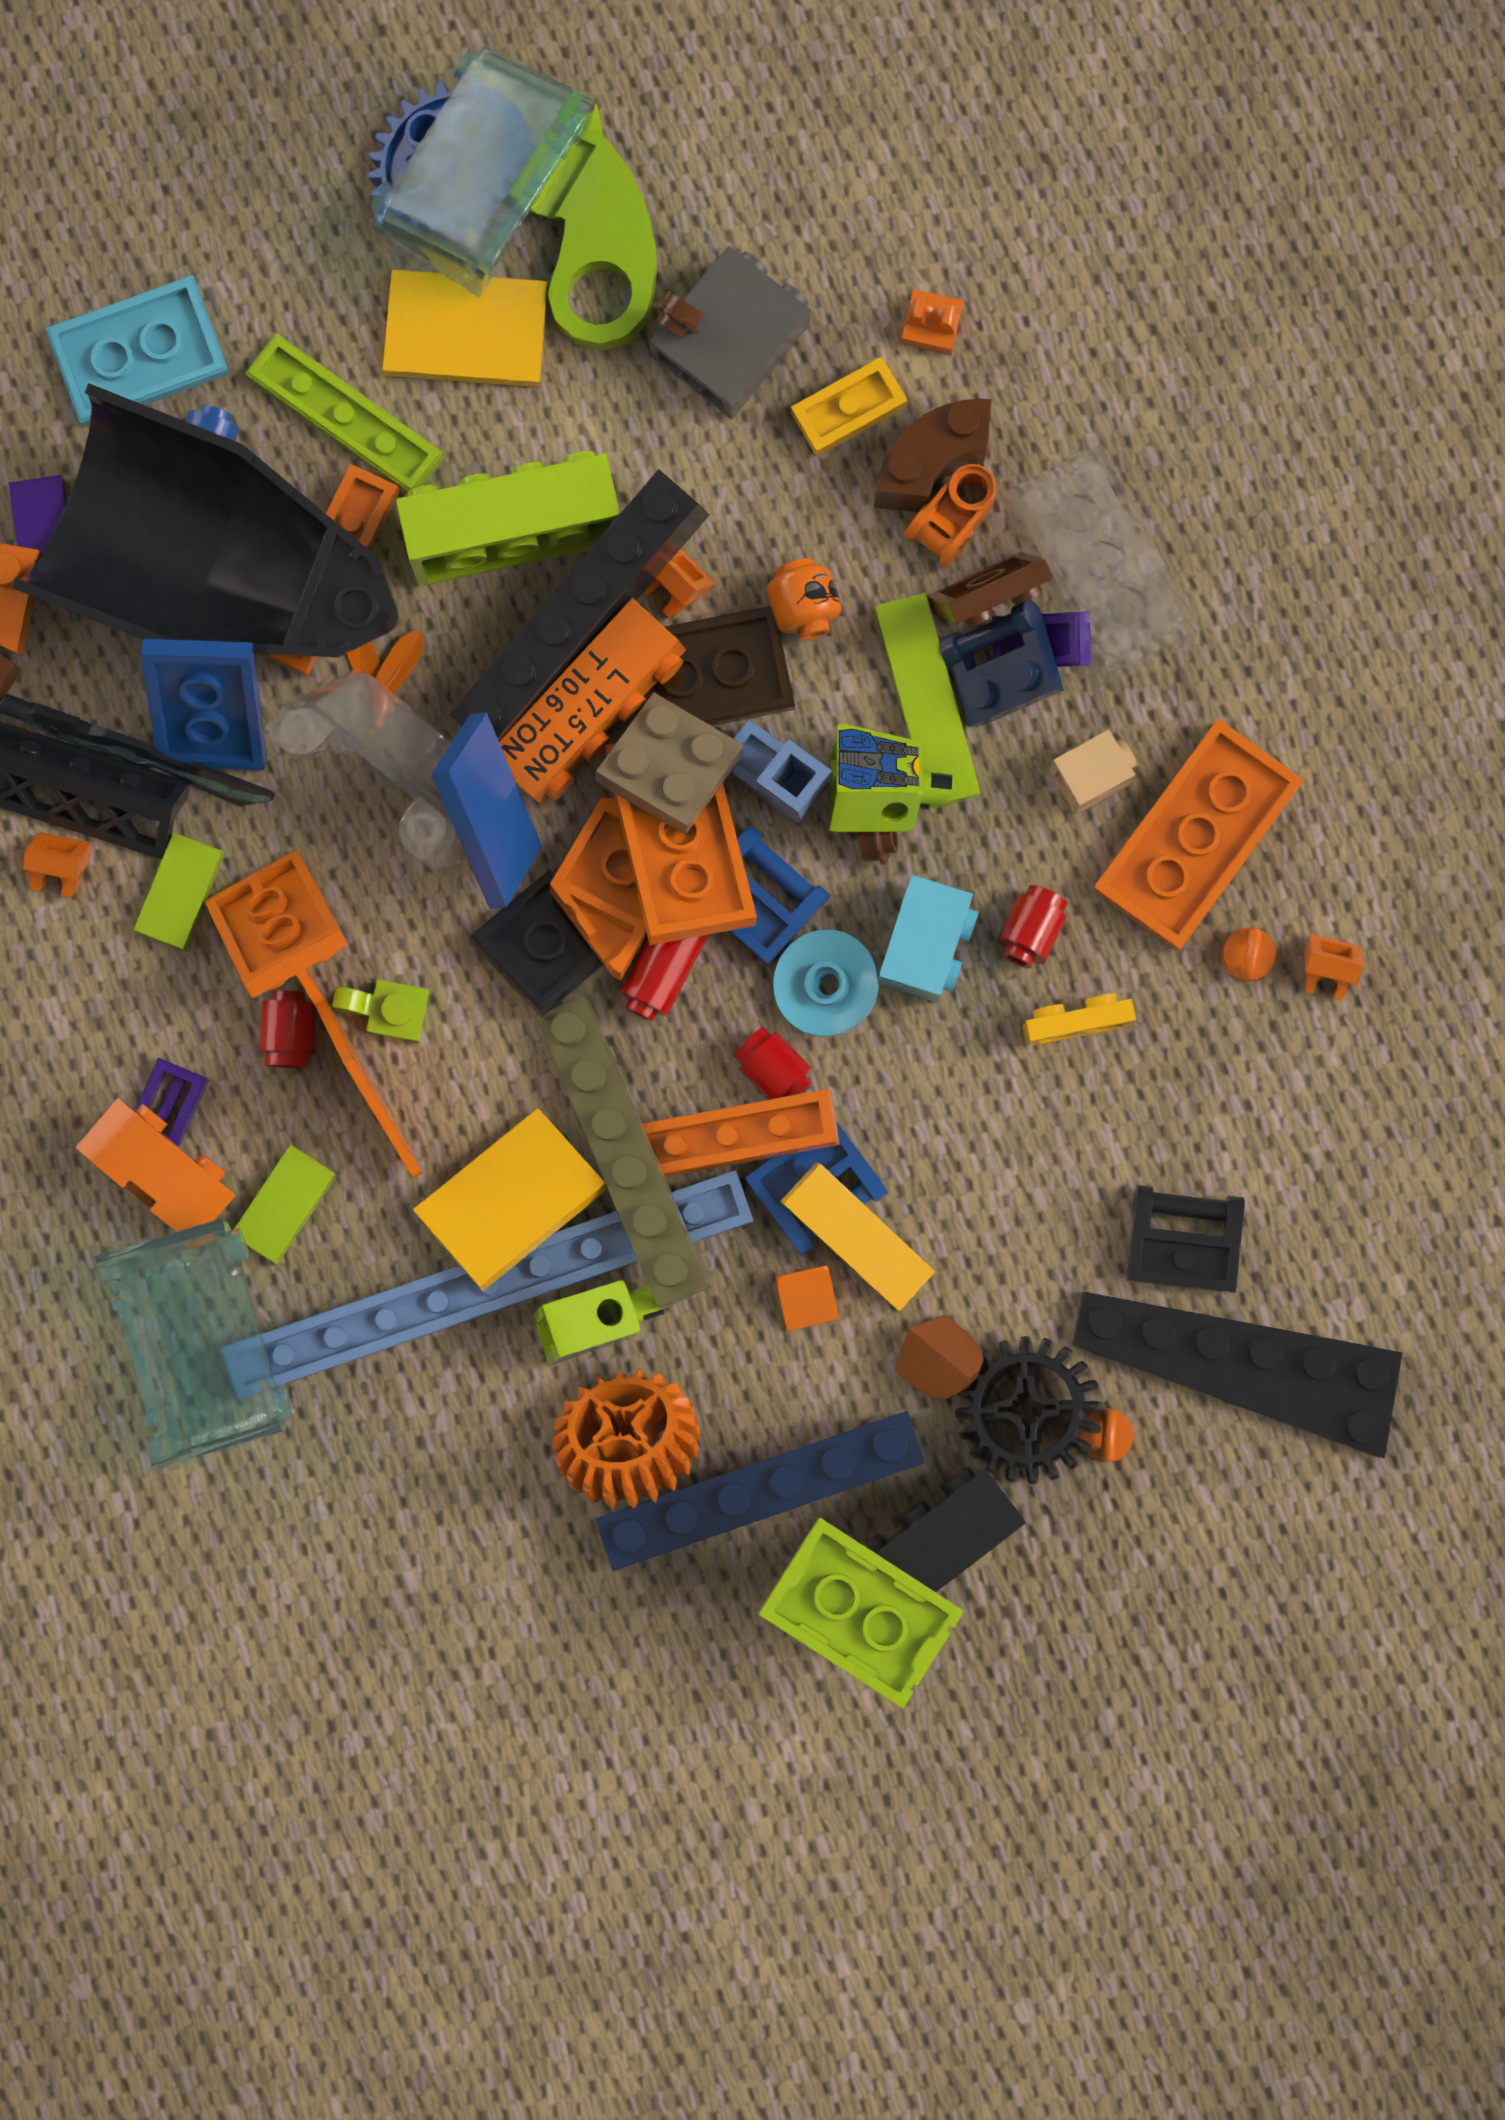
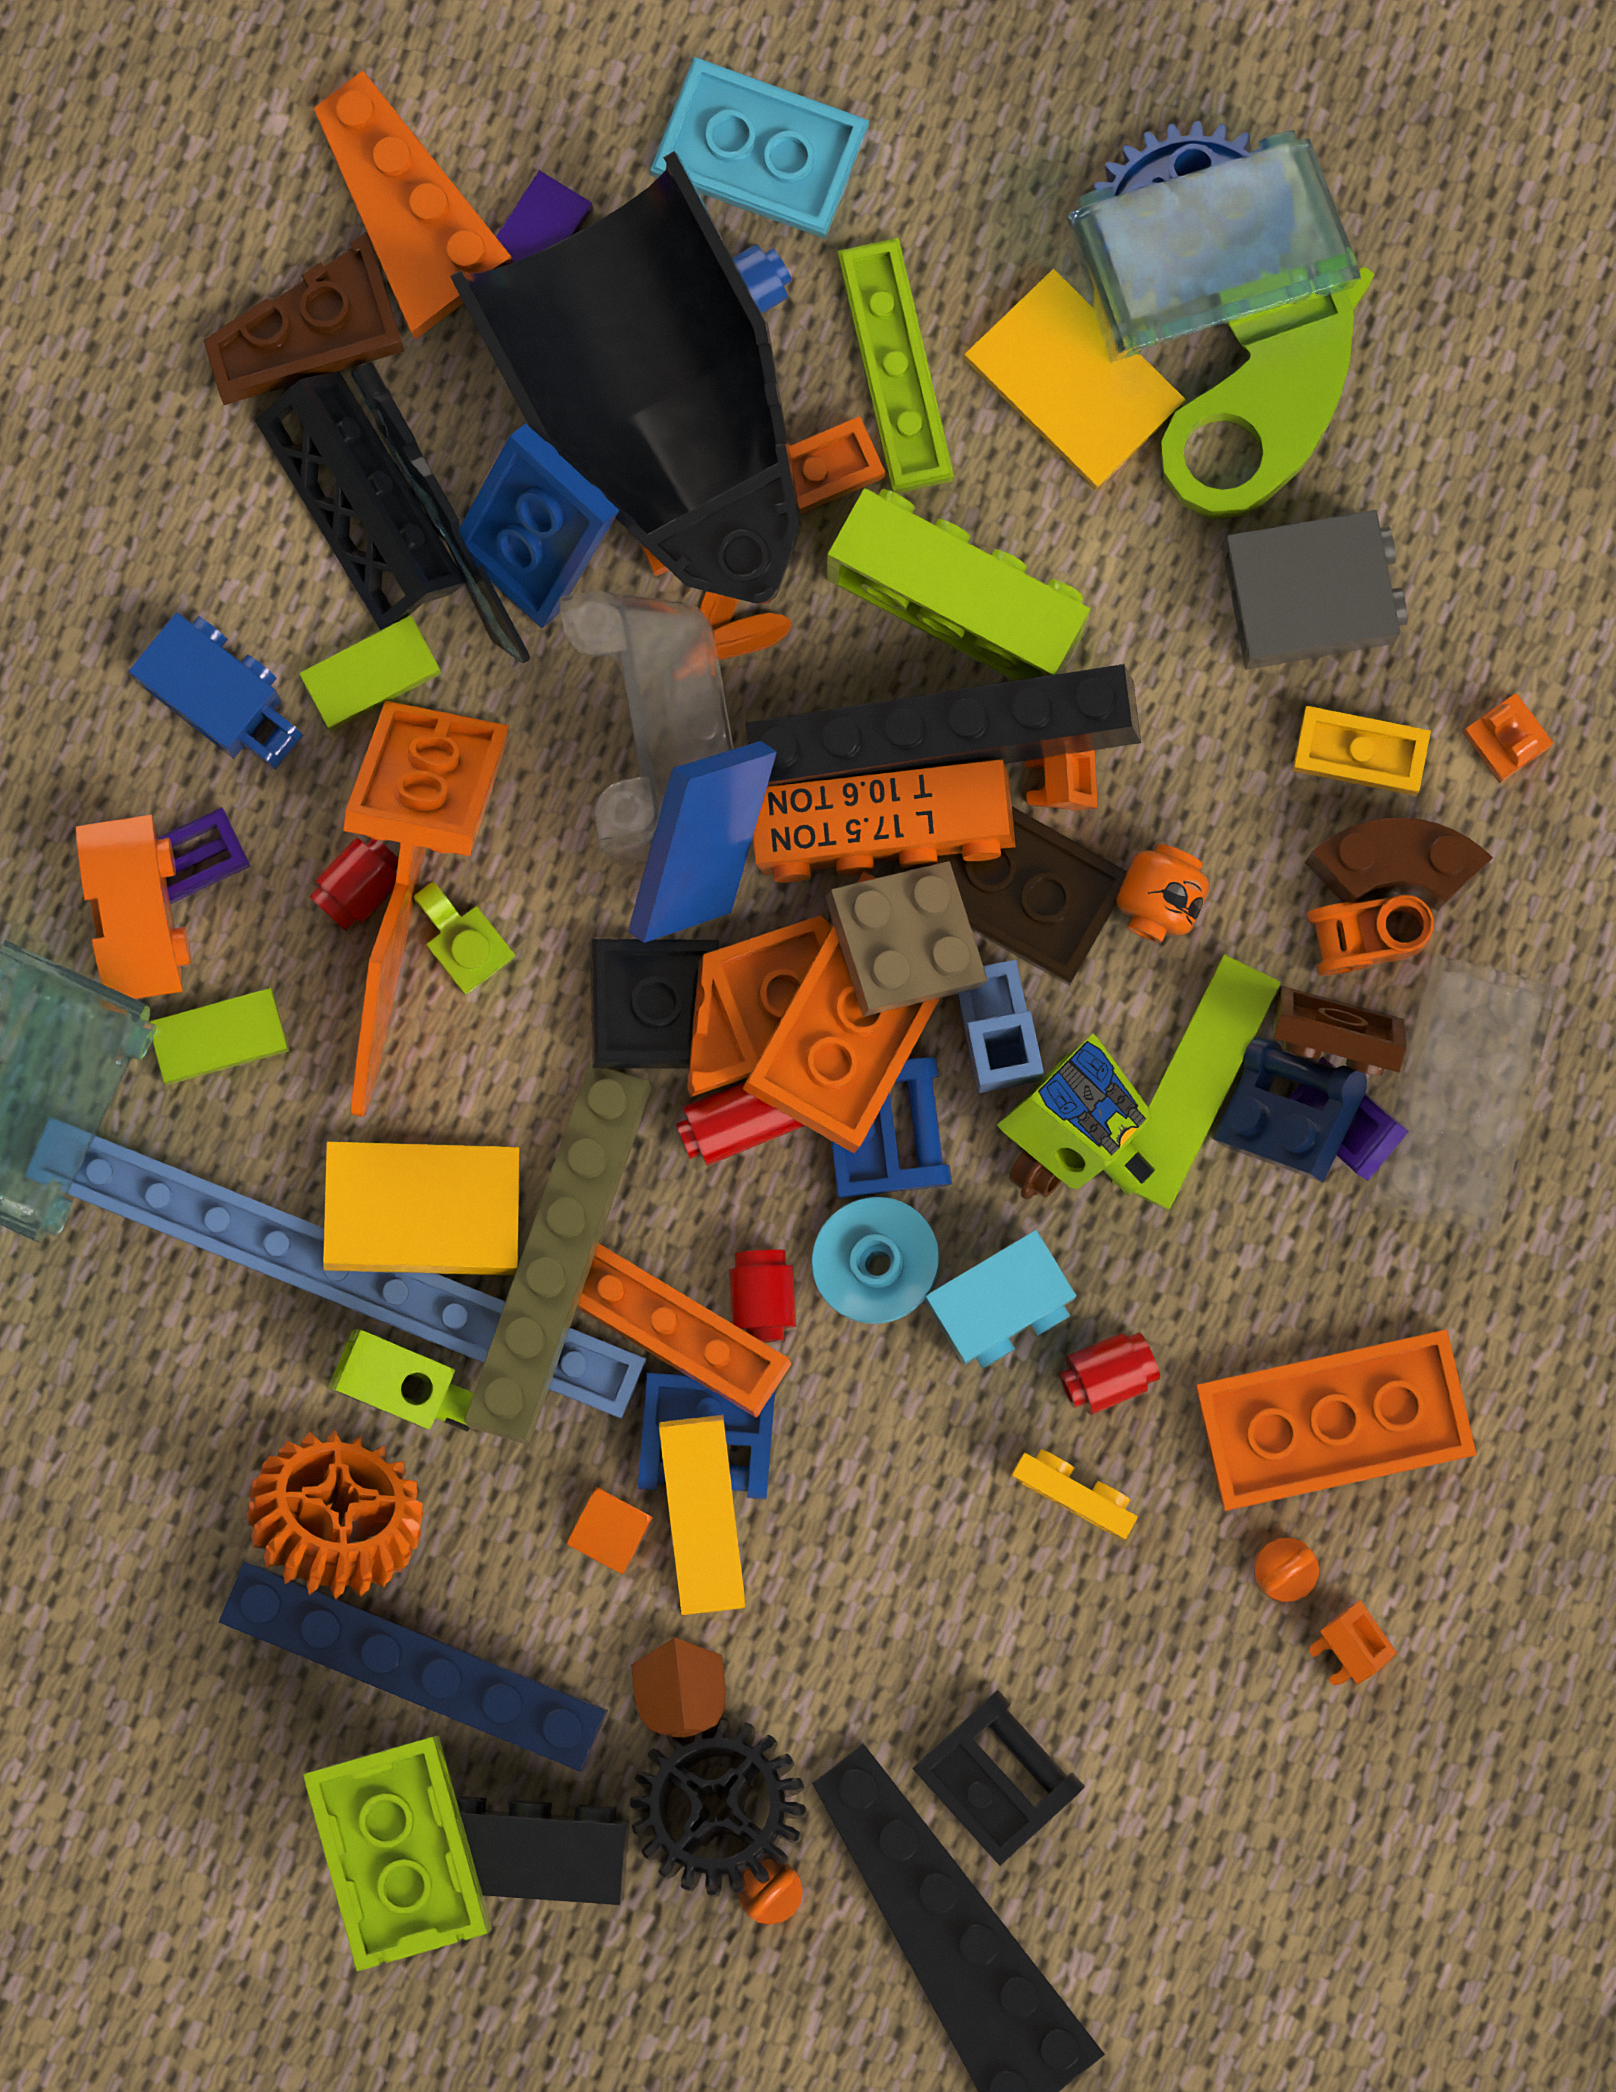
camera: 40 degrees right, 0 degrees up
(56, 857) = (287, 549): orange tile -> none
(88, 986) = (214, 689): none -> blue brick
(678, 315) = (1271, 536): reddish brown plate -> none
(1094, 770) = (1291, 1279): tan brick -> none

